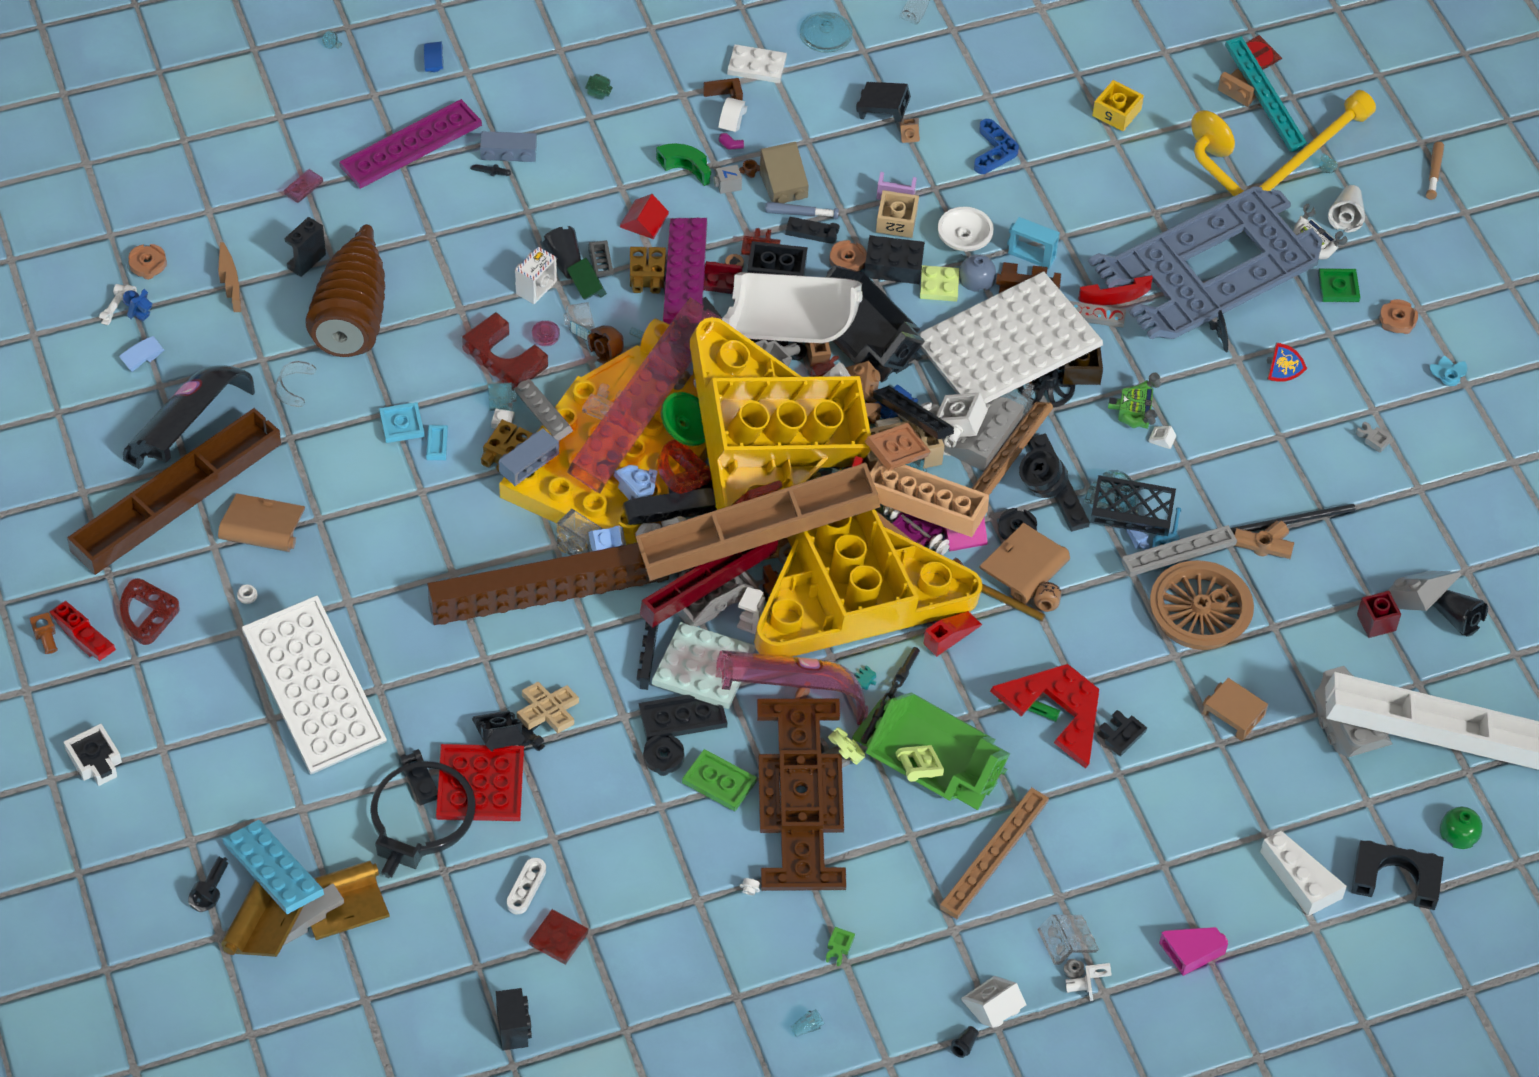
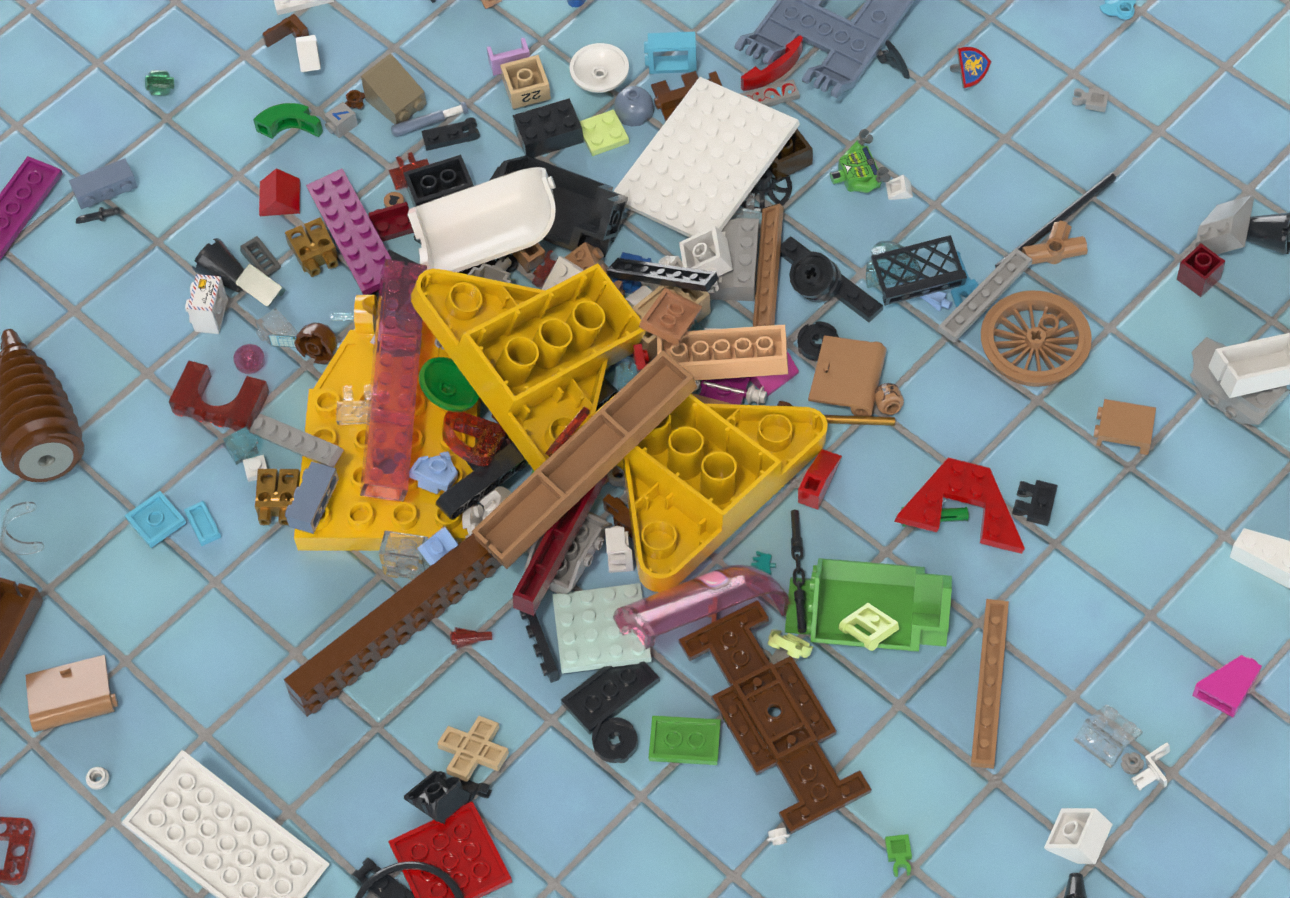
camera: 20 degrees left, 5 degrees up
(592, 622) = (462, 637): none -> clear red cone
(729, 143) = (320, 83): magenta arm -> none
(843, 248) = (498, 155): nougat plate -> none

